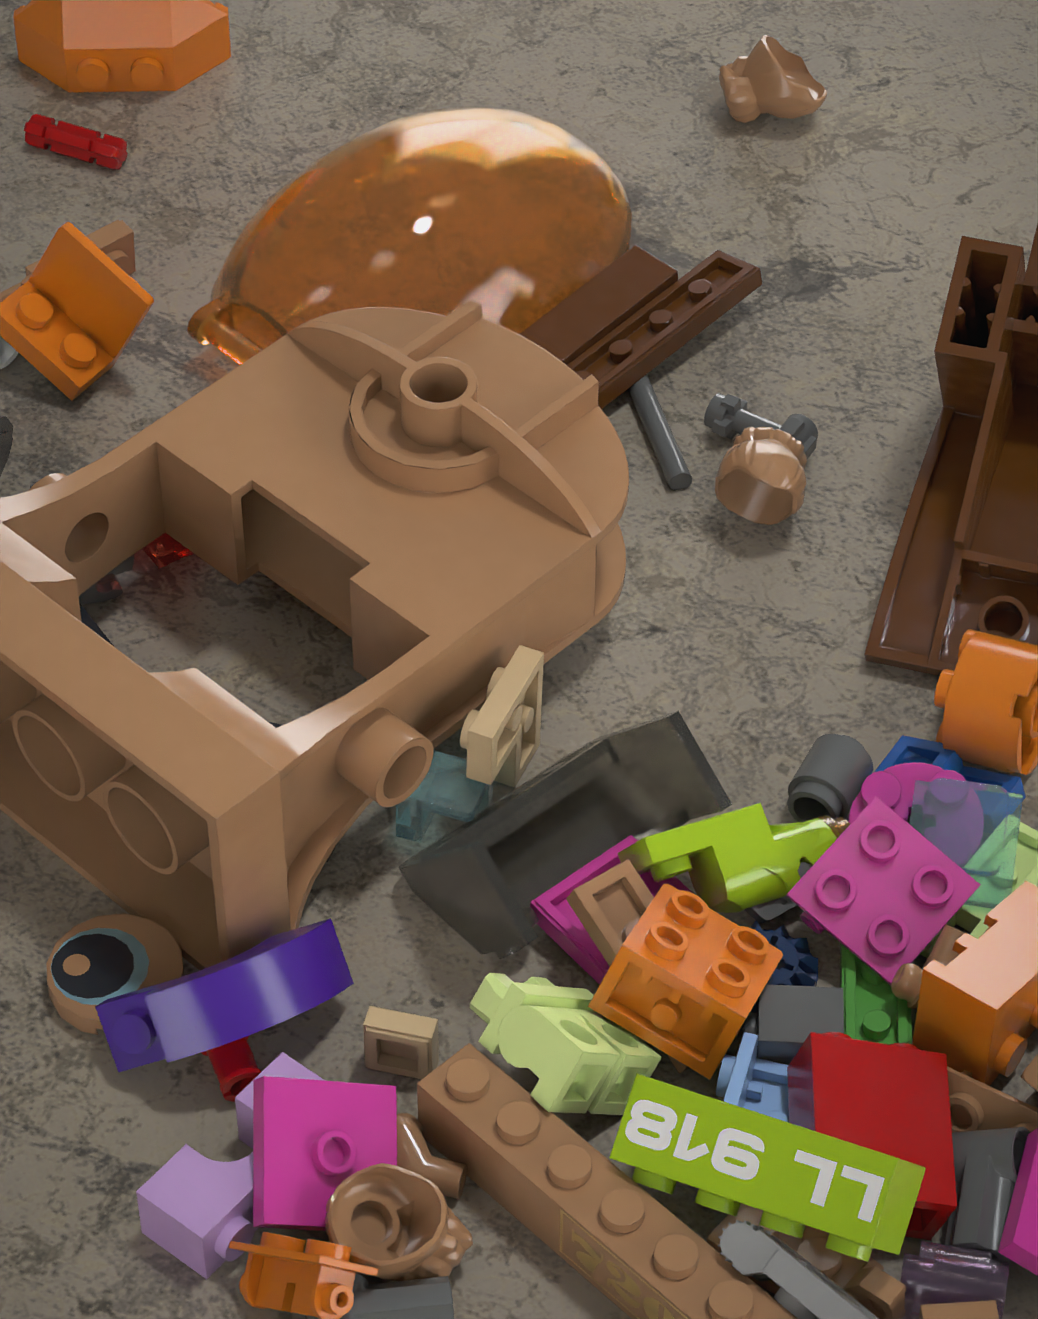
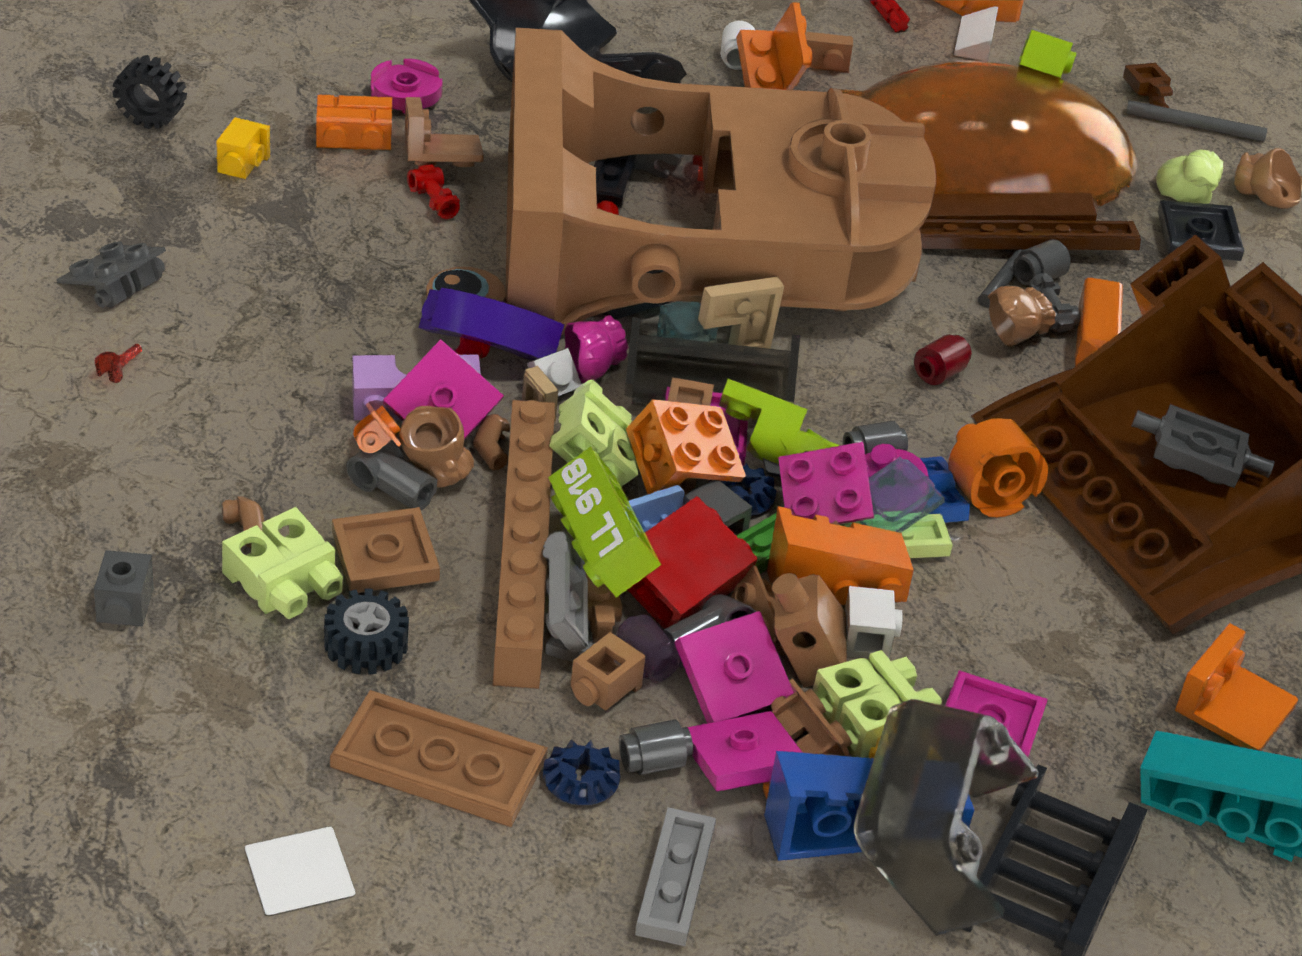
camera: 40 degrees right, 5 degrees down
(222, 105) = (976, 34): none -> white slope
(377, 984) = (560, 370): none -> white plate
(383, 921) = (595, 346): none -> dark pink hair
(386, 88) = (1047, 54): none -> lime brick
(486, 36) = (1149, 81): none -> reddish brown plate
(589, 57) = (1196, 120): none -> dark grey bar
(688, 381) = (1047, 257): none -> dark grey brick
(691, 142) = (1190, 176): none -> yellowish green hair
(749, 602) = (942, 359): none -> dark red brick
(779, 207) = (1210, 222): none -> black plate
(851, 424) = (1099, 316): none -> orange piece

